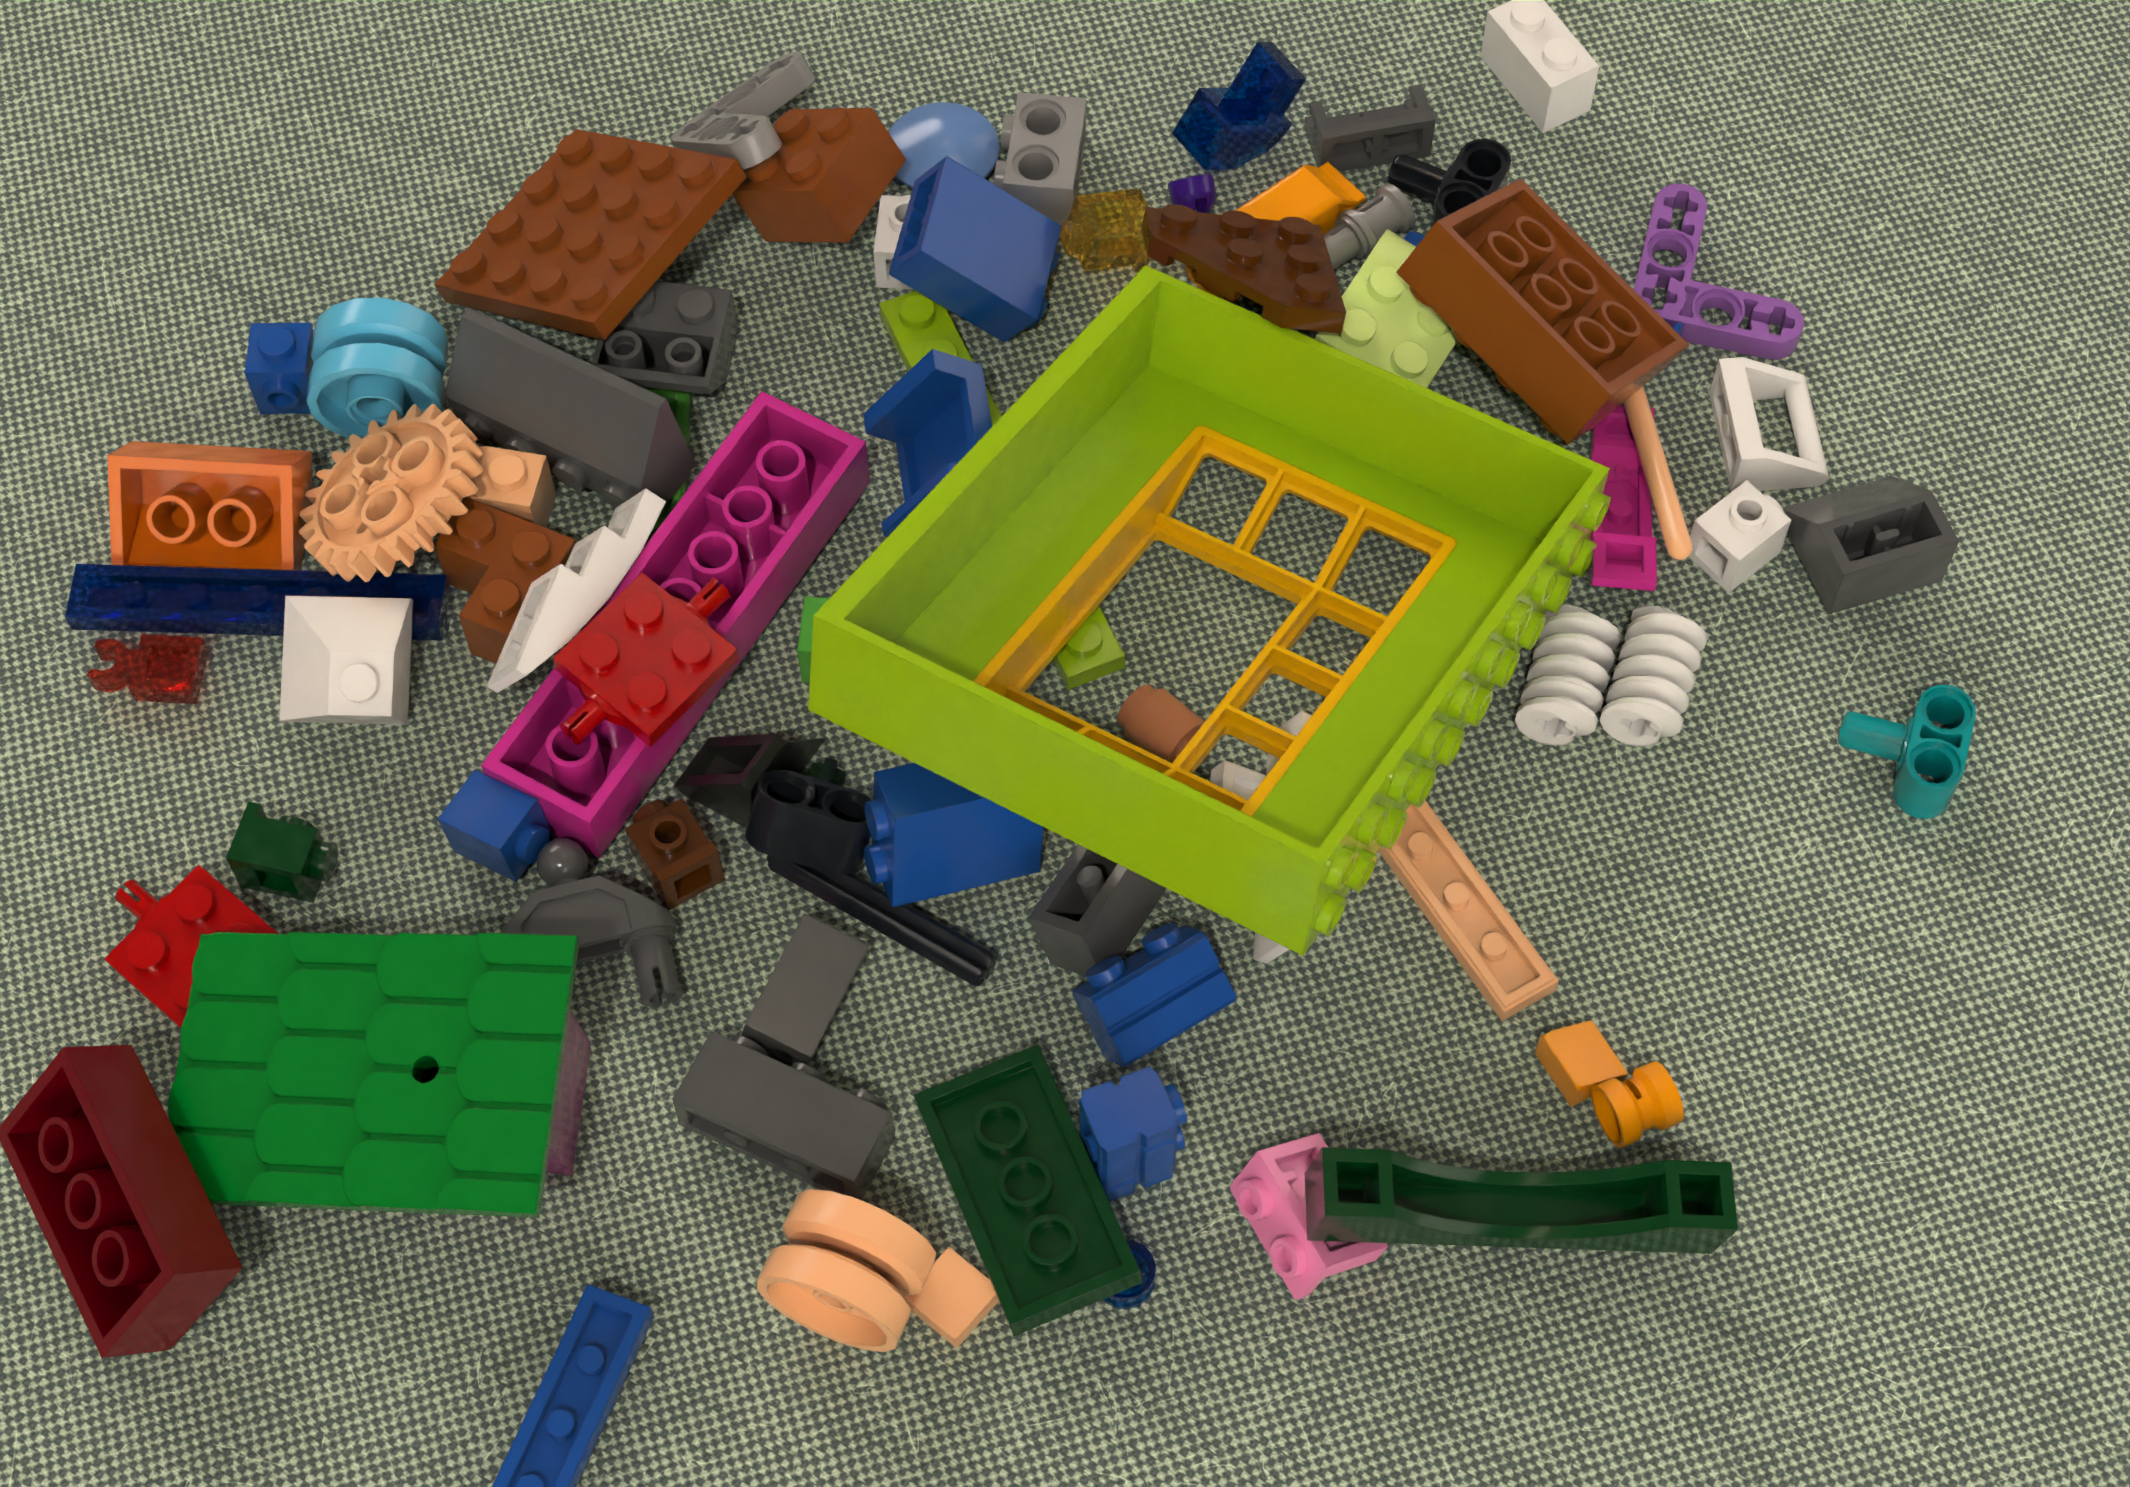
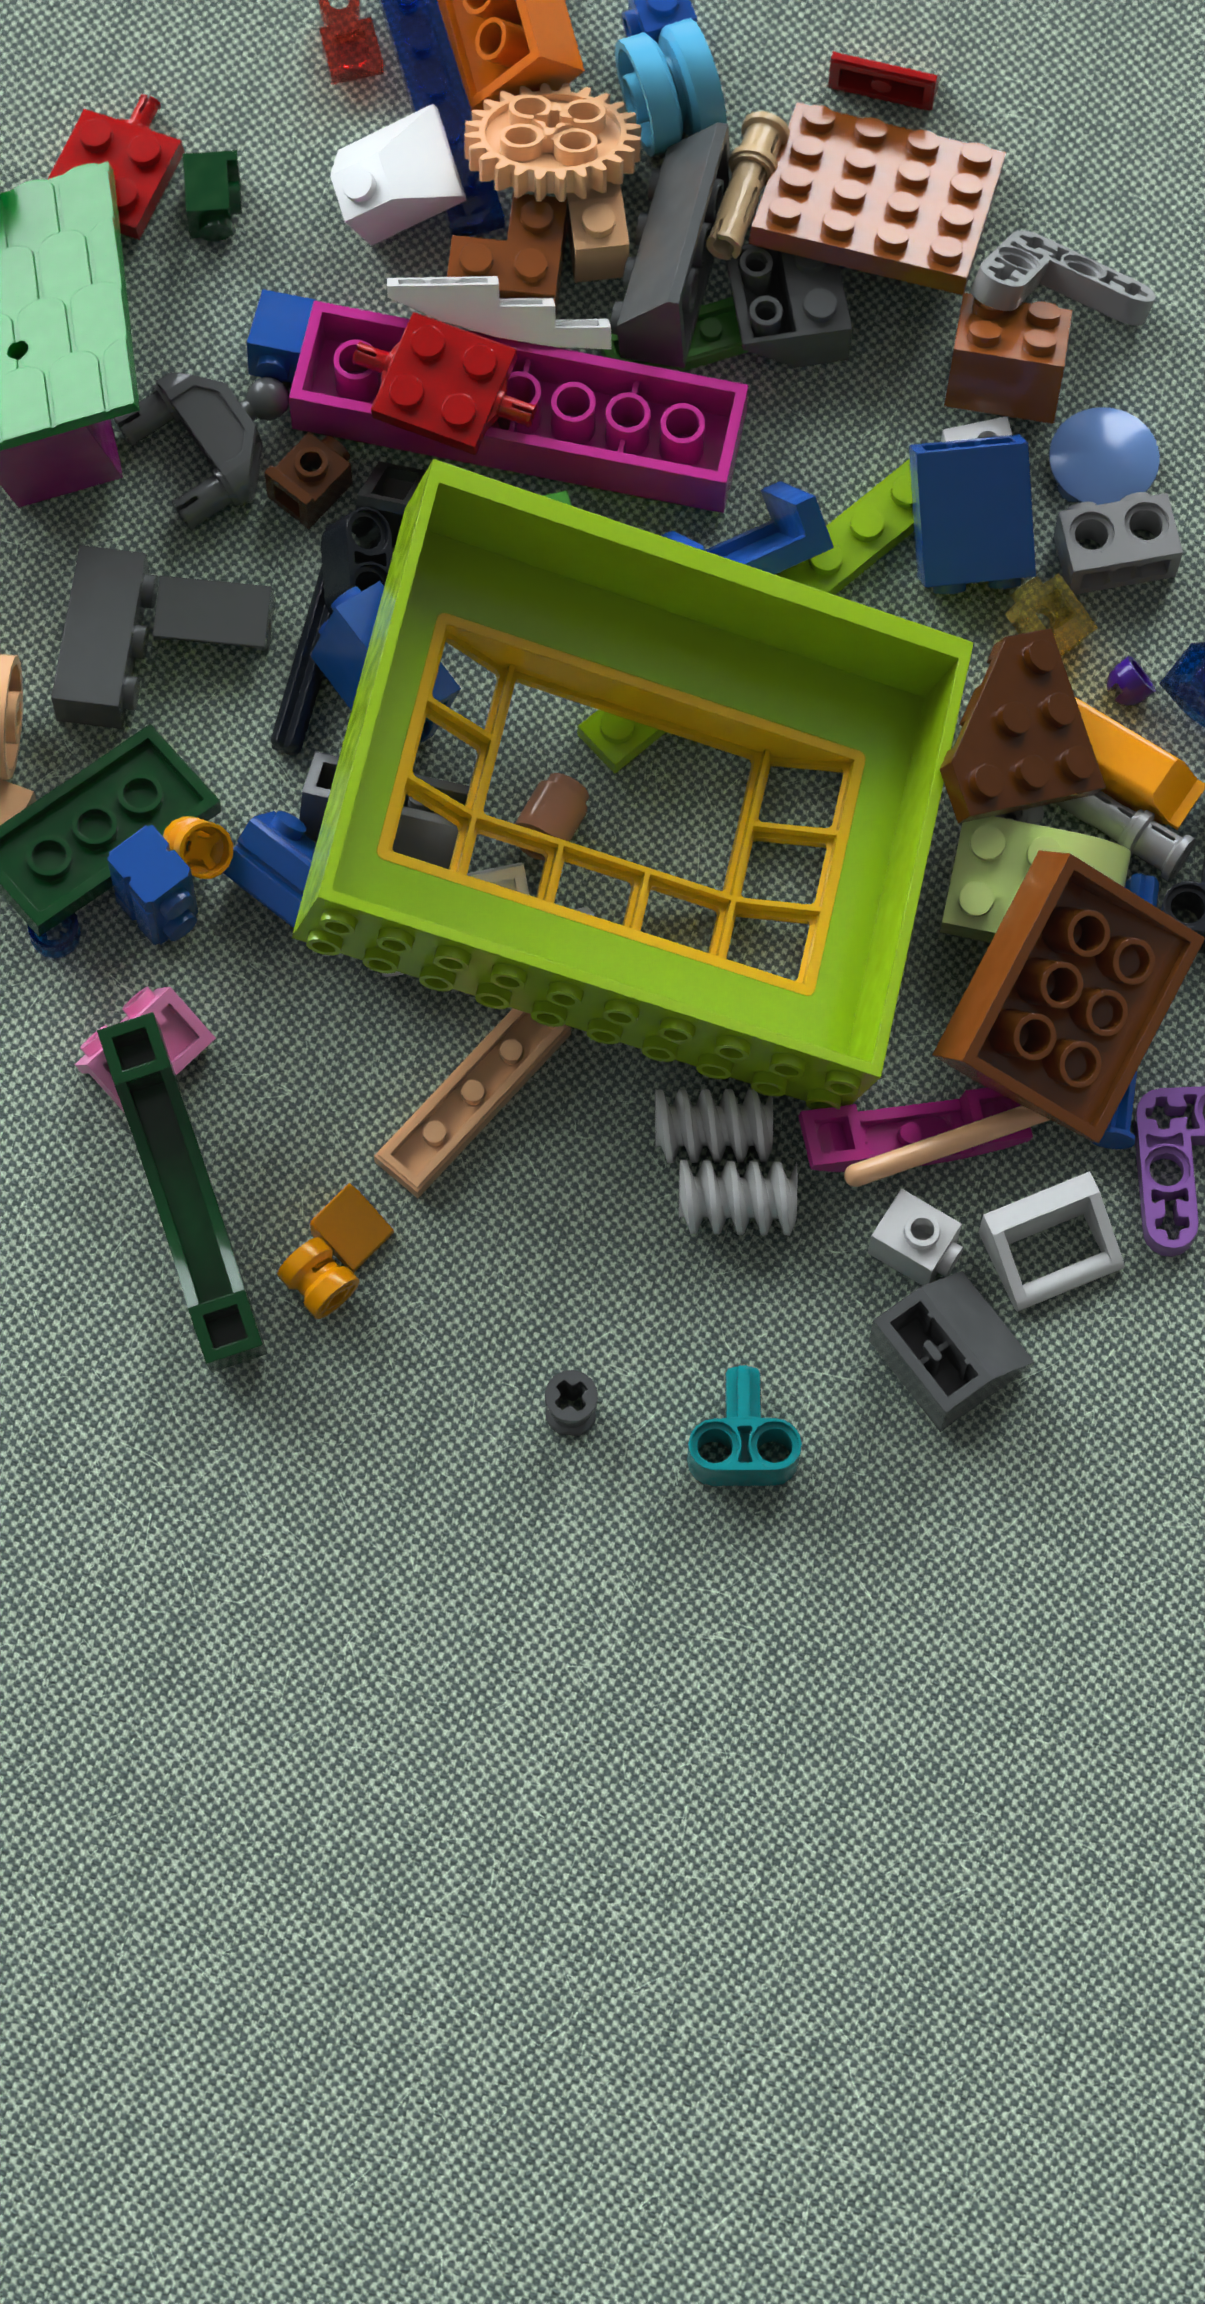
camera: 70 degrees right, 10 degrees up
(445, 207) = (883, 81): none -> red slope
(514, 314) = (750, 171): none -> tan pin
(1098, 1059) = (207, 854): none -> light orange wheel
(1843, 895) = (572, 1385): none -> dark grey bush

